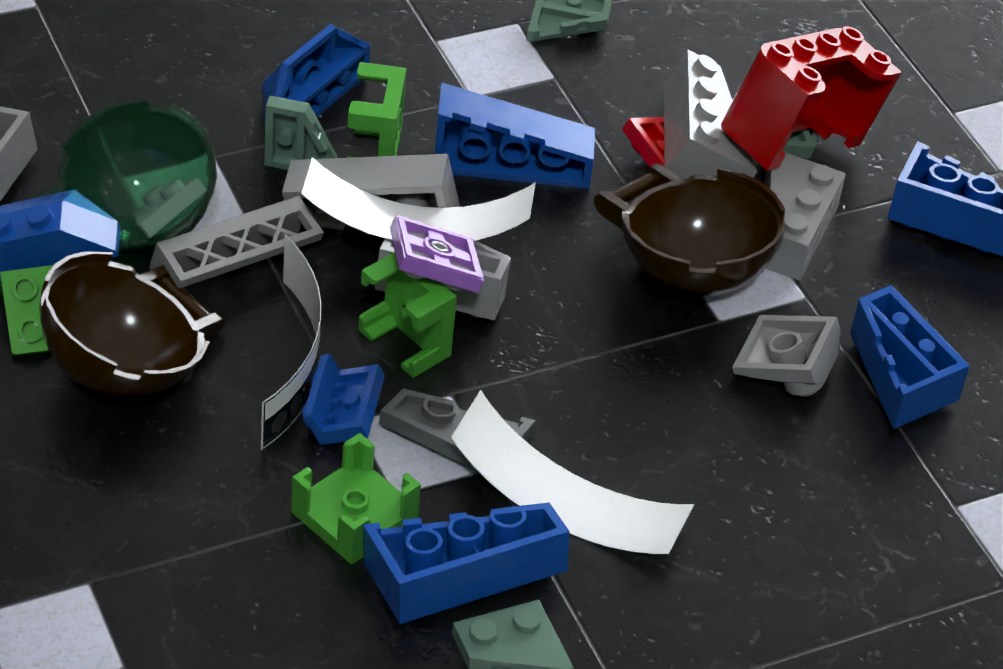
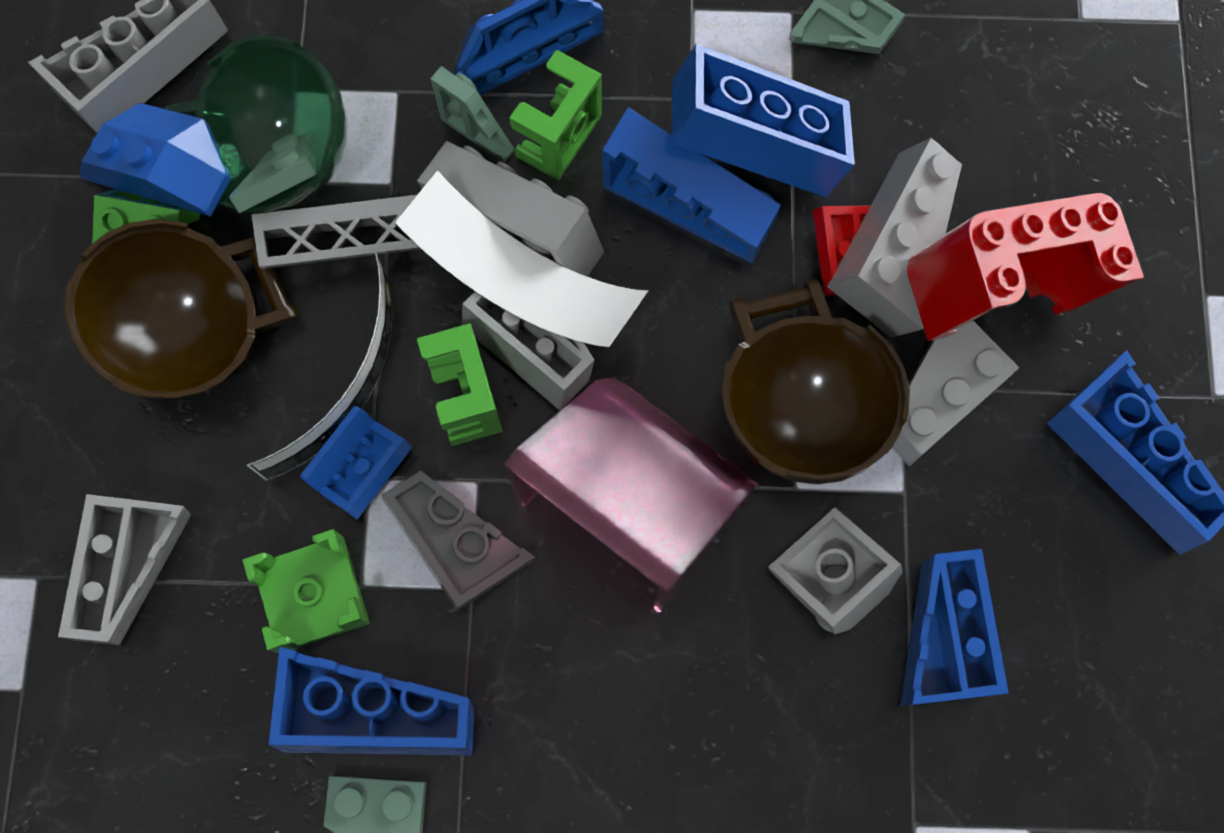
camera: 30 degrees right, 30 degrees up
(171, 525) = (116, 564): none -> light grey wedge
(436, 254) = (495, 351): medium lavender piece -> none
(550, 73) = (761, 121): none -> blue brick
(584, 507) = (519, 659): white sticker -> none
(589, 291) = (632, 481): none -> clear pink windscreen

